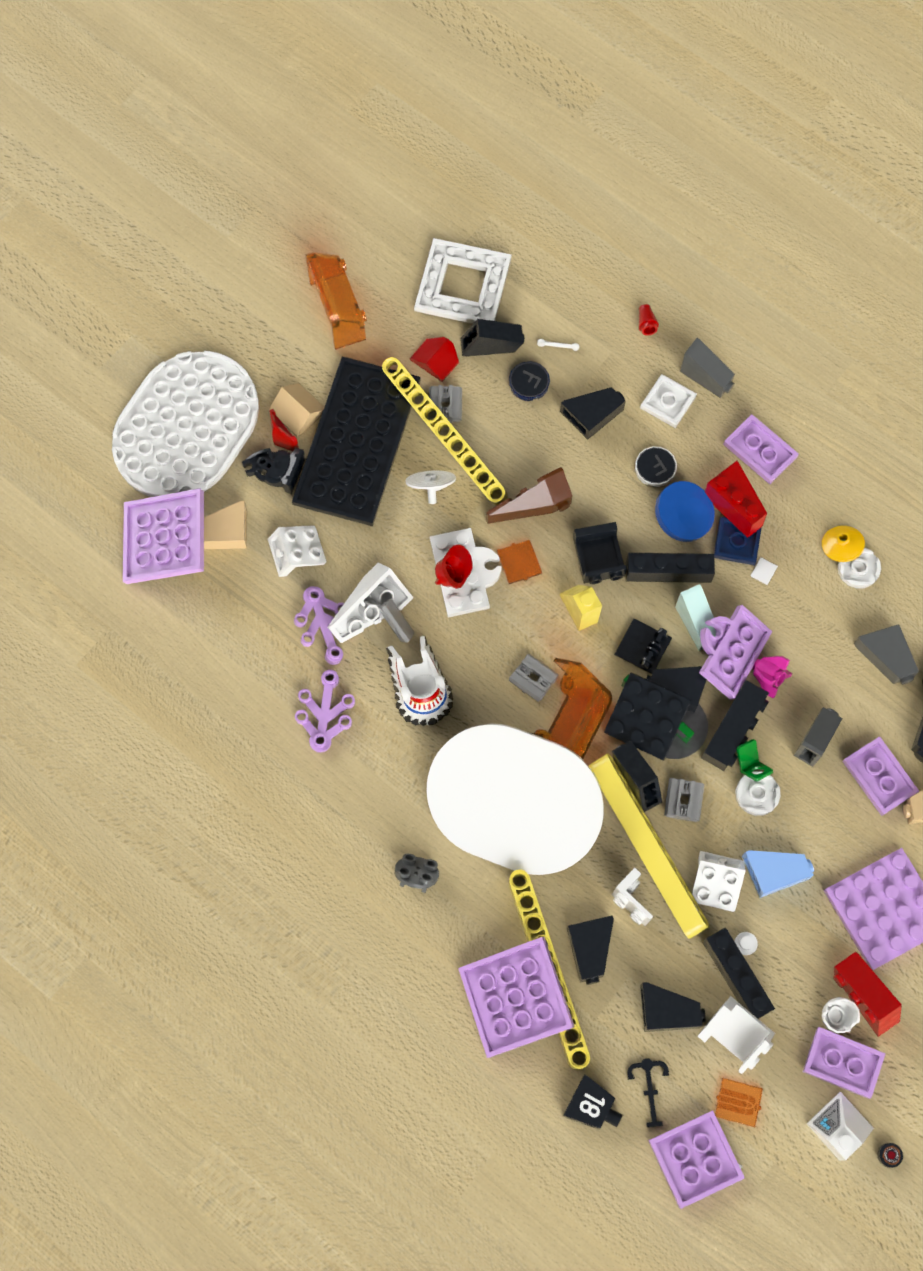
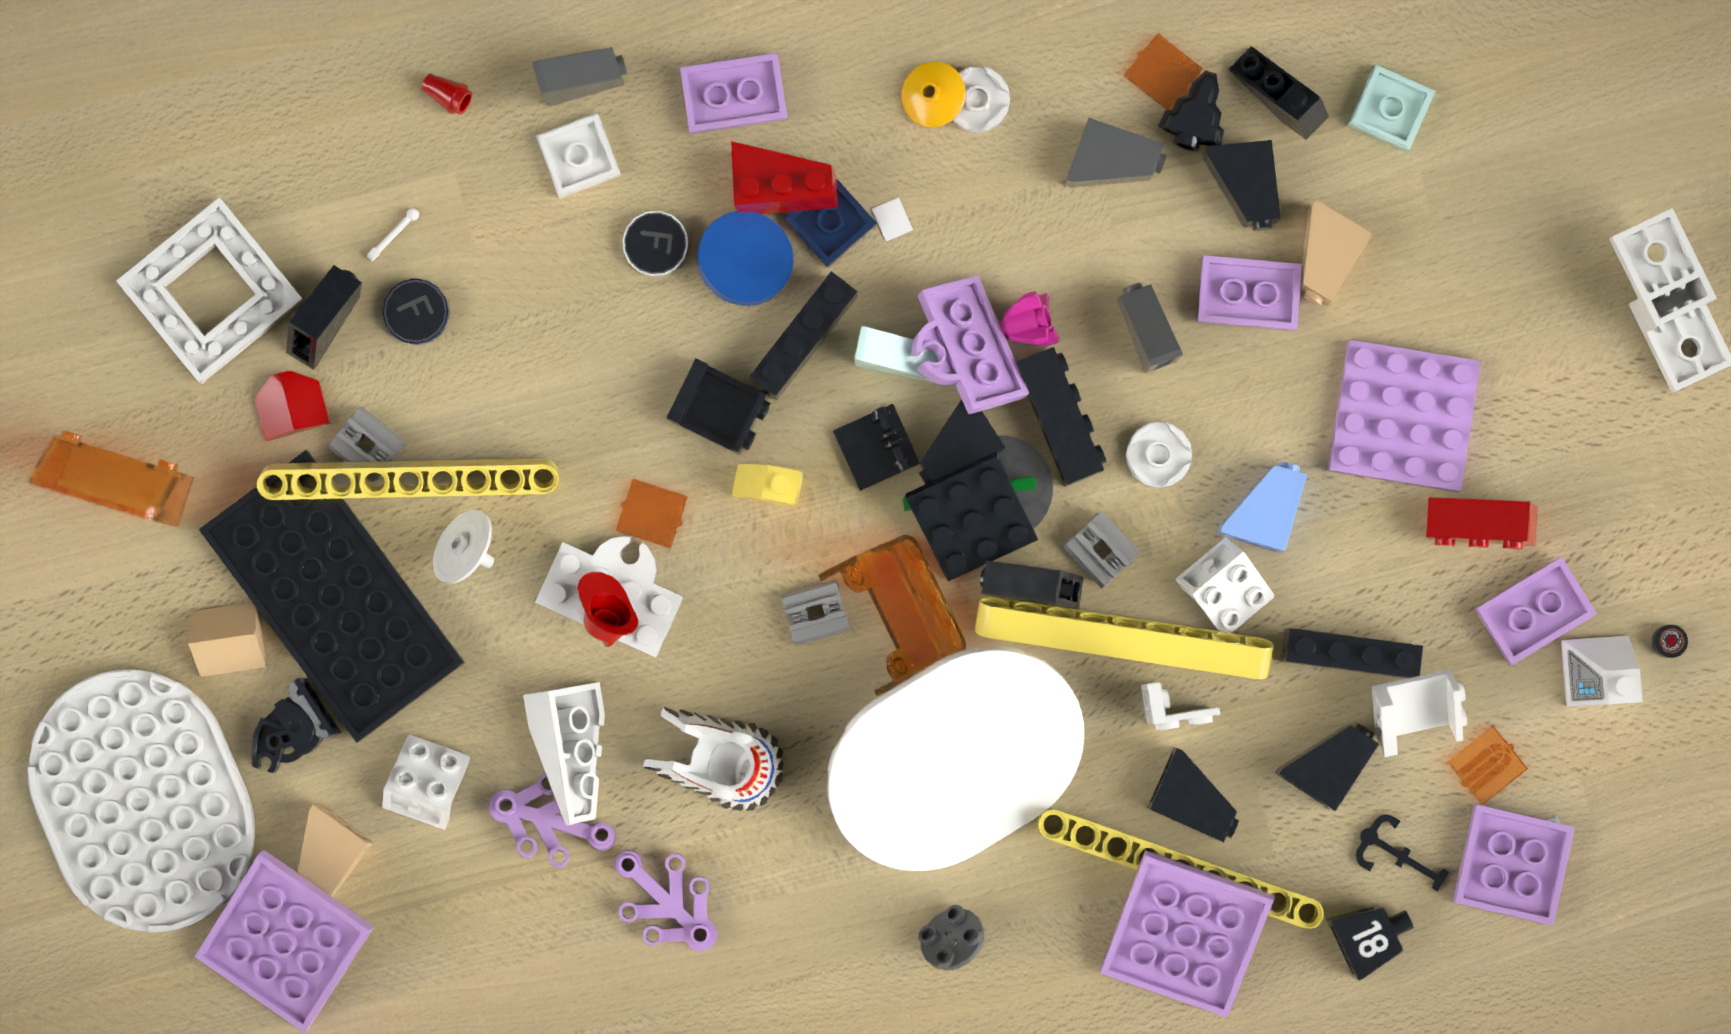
camera: 50 degrees left, 15 degrees up
(281, 435) = (250, 689): red slope -> none
(396, 620) = (617, 727): light grey slope -> none
(546, 497) = (595, 416): reddish brown wedge -> none
(593, 410) = (522, 263): black slope -> none
(746, 943) = (1321, 613): white plate -> none
(749, 761) = (1115, 434): green bracket -> none
(840, 1015) = (1482, 573): white hair -> none

